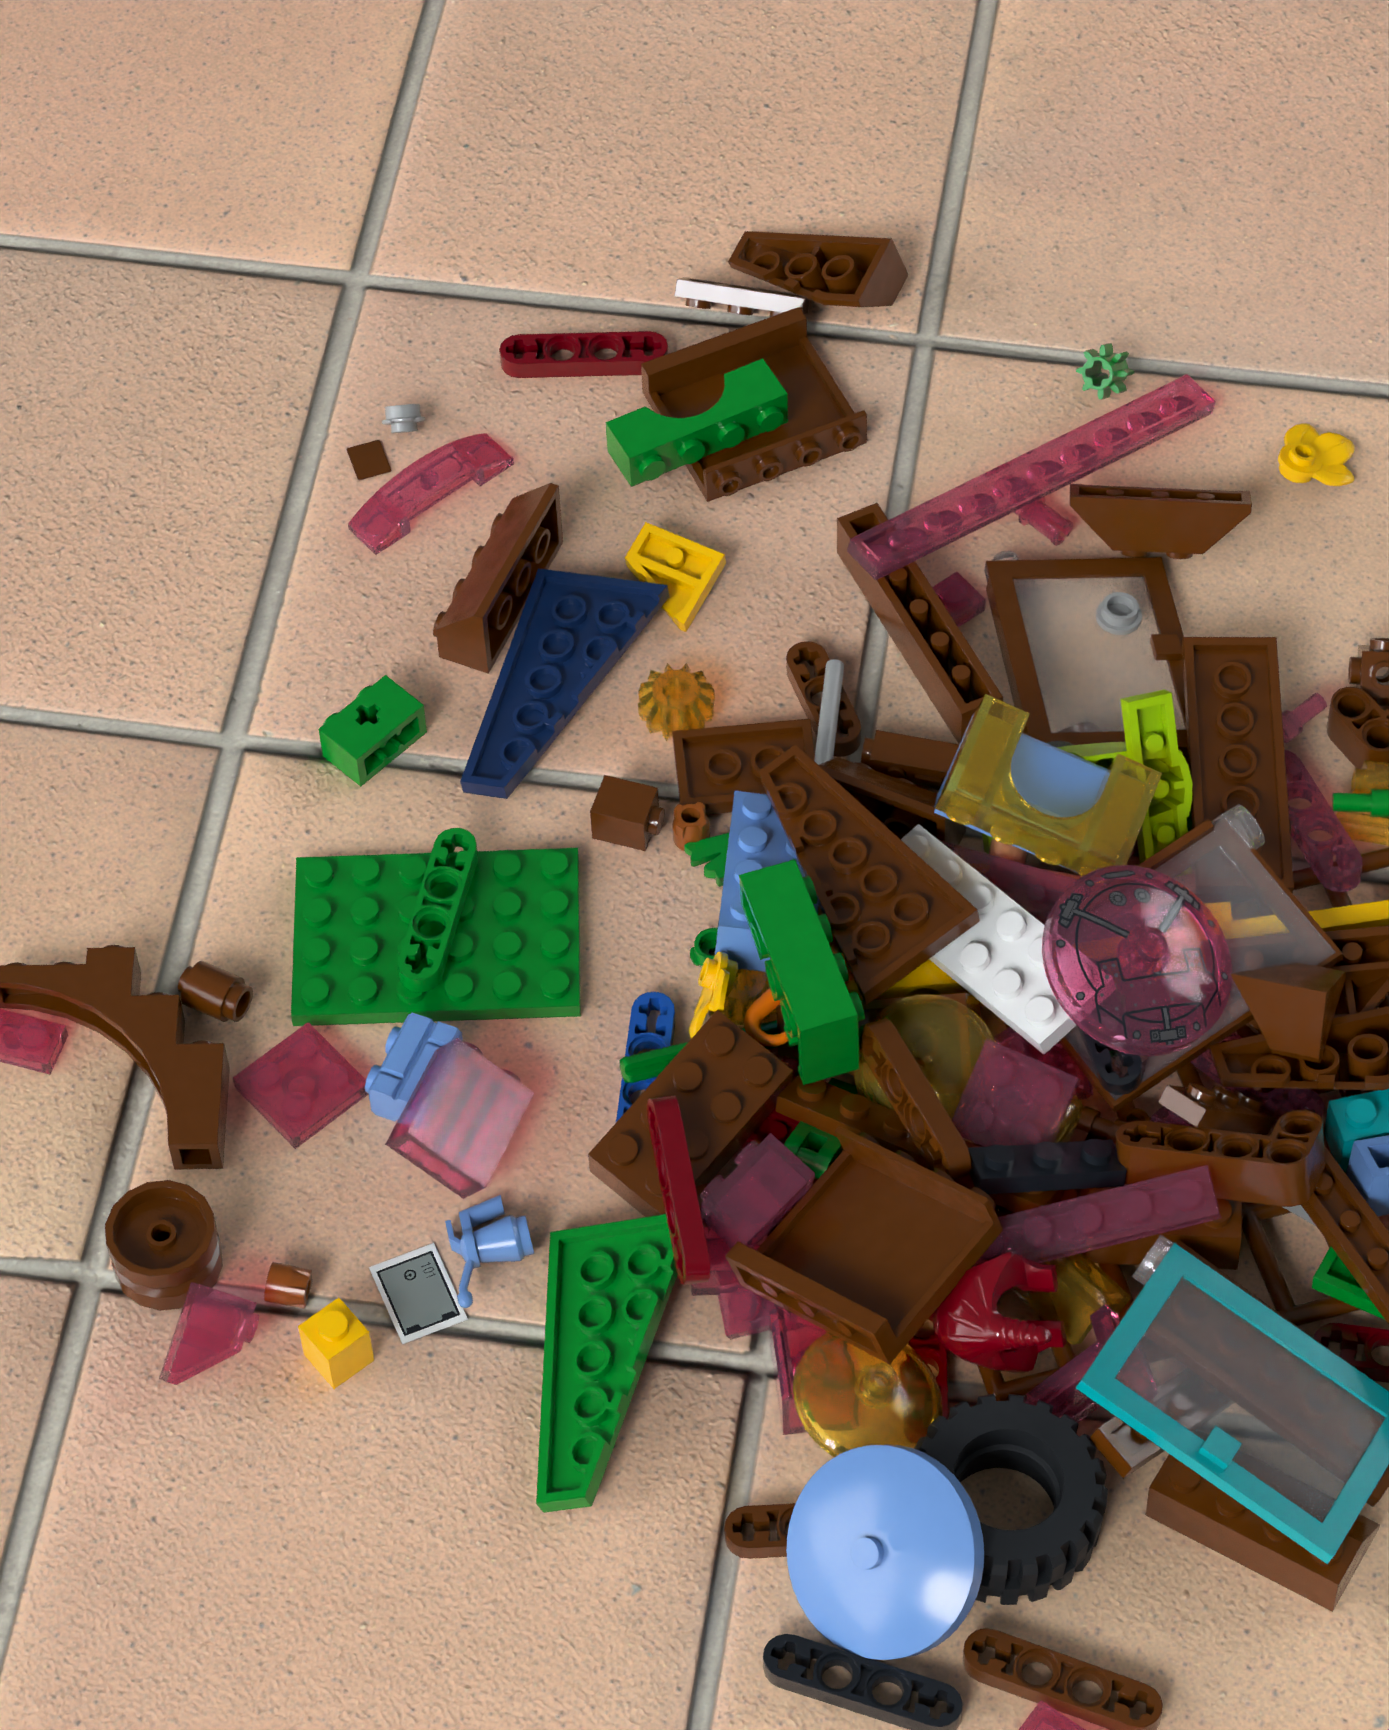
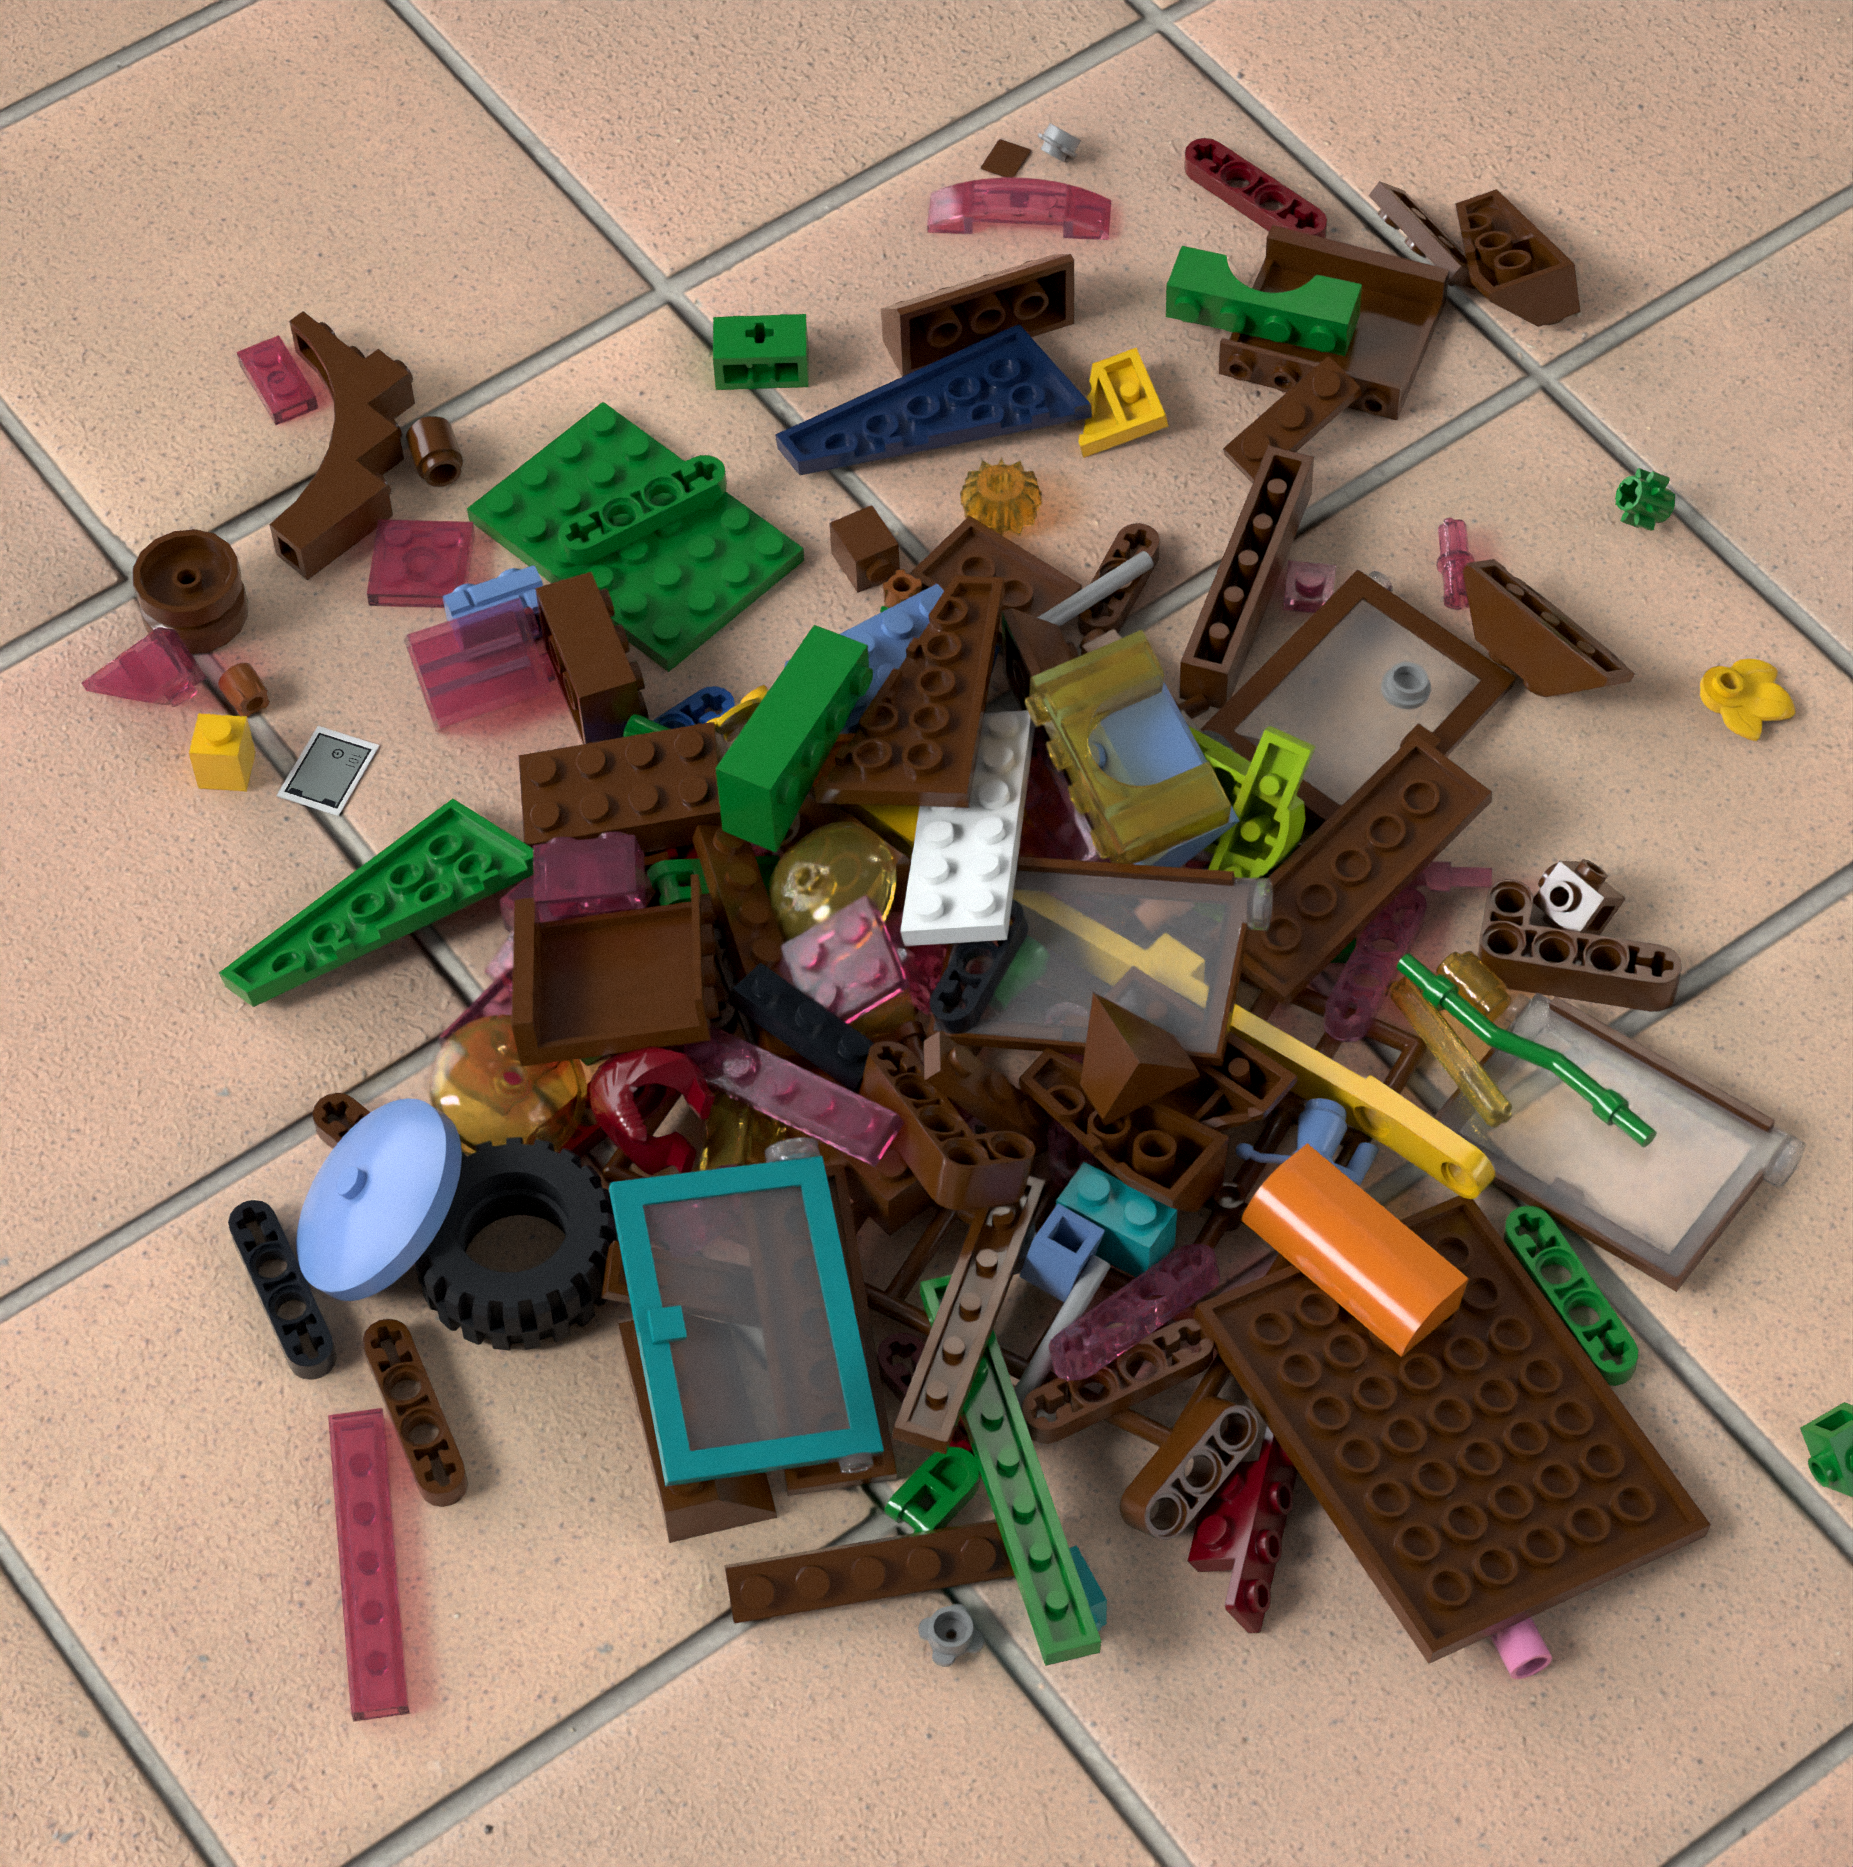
camera: 45 degrees right, 0 degrees up
(498, 1242) = (414, 777): medium blue piece -> none
(553, 1049) = (590, 657): none -> reddish brown brick
(678, 1190) = (535, 825): dark red beam -> none
(815, 493) = (1294, 416): none -> reddish brown plate
(914, 1099) = (764, 897): reddish brown beam -> none
(1029, 477) = (1470, 530): clear pink plate -> none
(1136, 960) = (1039, 926): clear pink dish -> none

